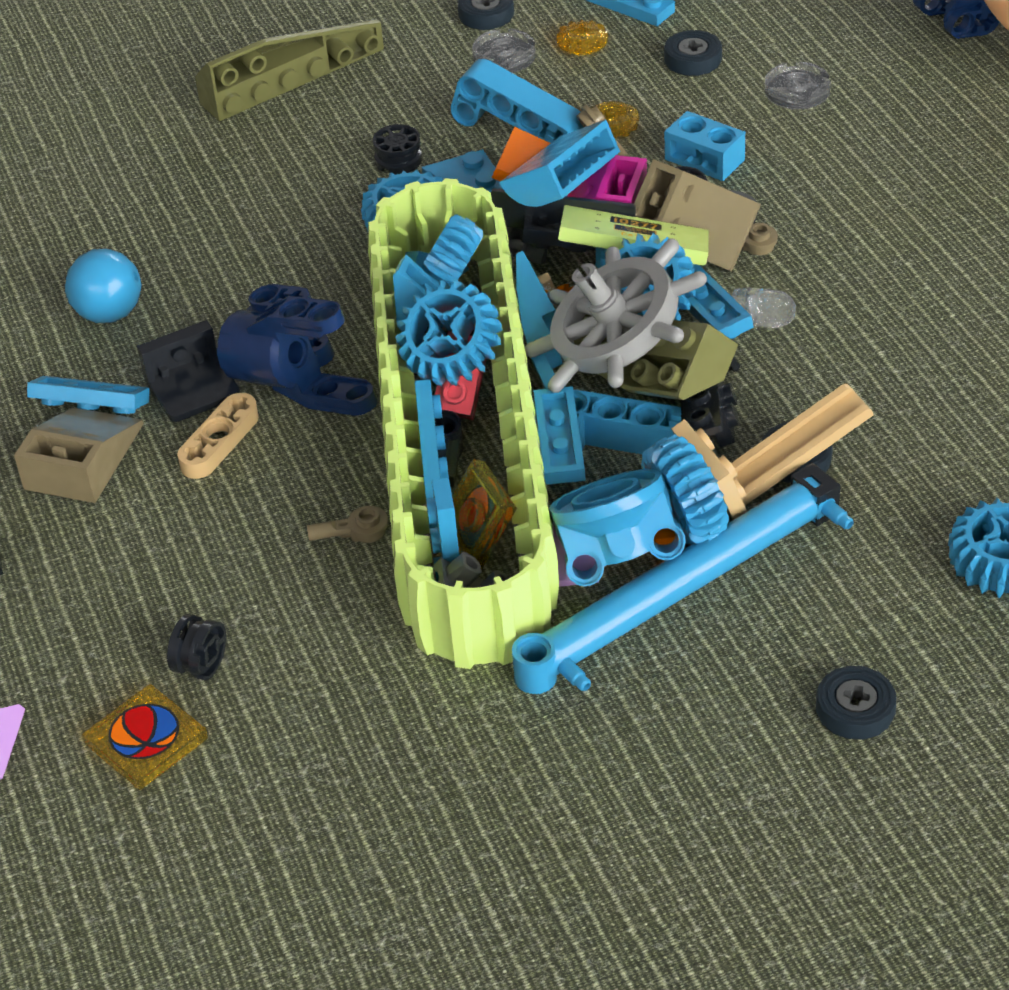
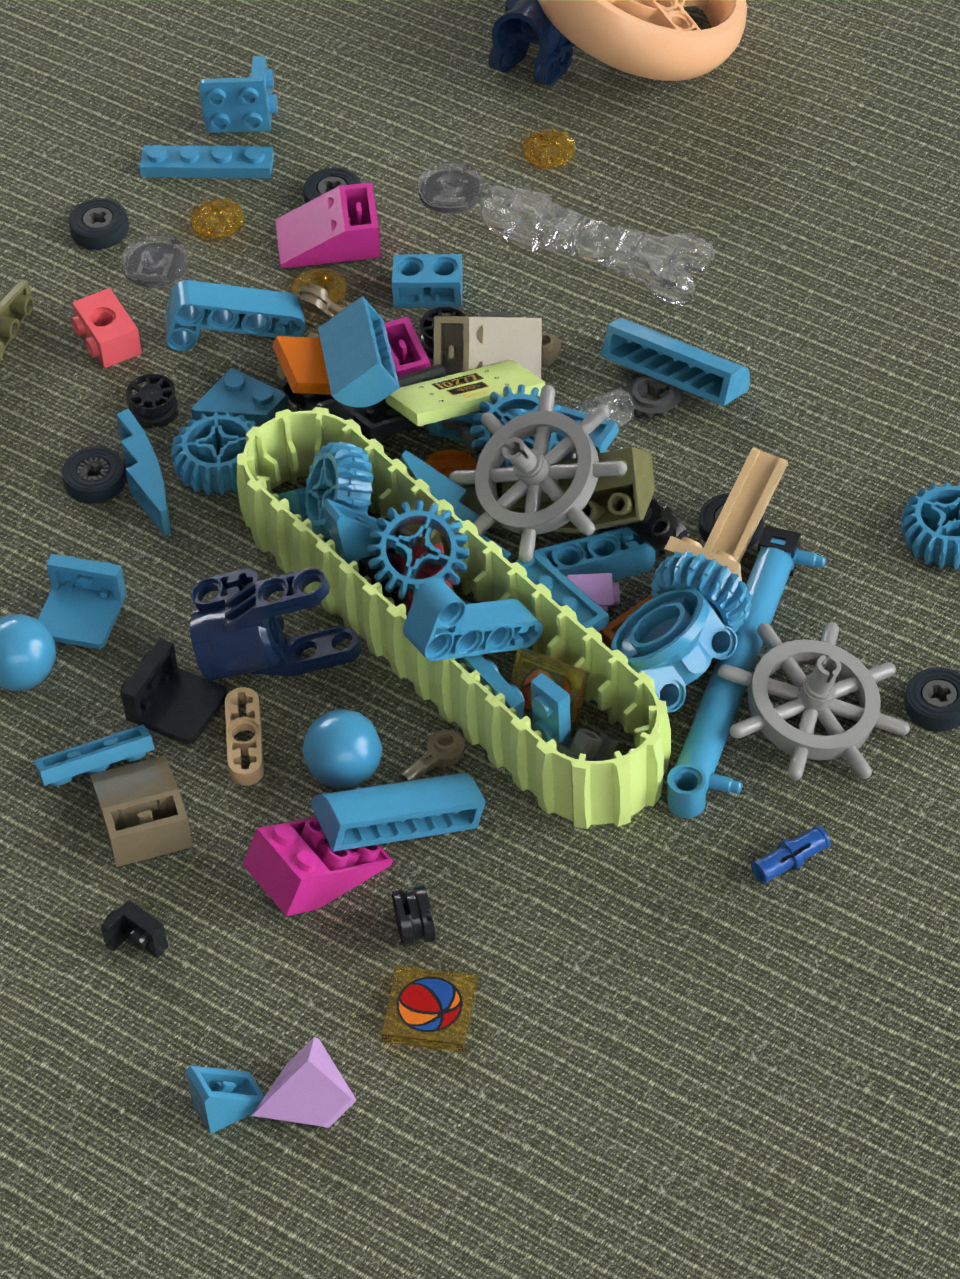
camera: 35 degrees left, 5 degrees up
(171, 560) = (301, 869): none -> dark pink slope
(196, 277) = (82, 600): none -> dark azure bracket
(264, 551) = (399, 811): none -> dark azure brick
(267, 477) = (342, 749): none -> dark azure piece
(290, 179) = (99, 462): none -> black bush
(337, 201) = (143, 471): none -> dark azure slope
(413, 82) = (106, 328): none -> coral brick
(426, 414) = (449, 629): none -> dark azure beam
(549, 771) = (770, 865): none -> blue pin
(606, 451) = (598, 588): none -> lavender window
(664, 76) = (330, 228): none -> dark pink slope
(723, 640) = (813, 700): none -> light grey piece
(837, 314) = (668, 396): none -> dark grey gear
(859, 293) = (674, 362): none -> dark azure brick
(903, 89) = (549, 156): none -> clear yellow gear
(921, 205) = (648, 258): none -> clear piece

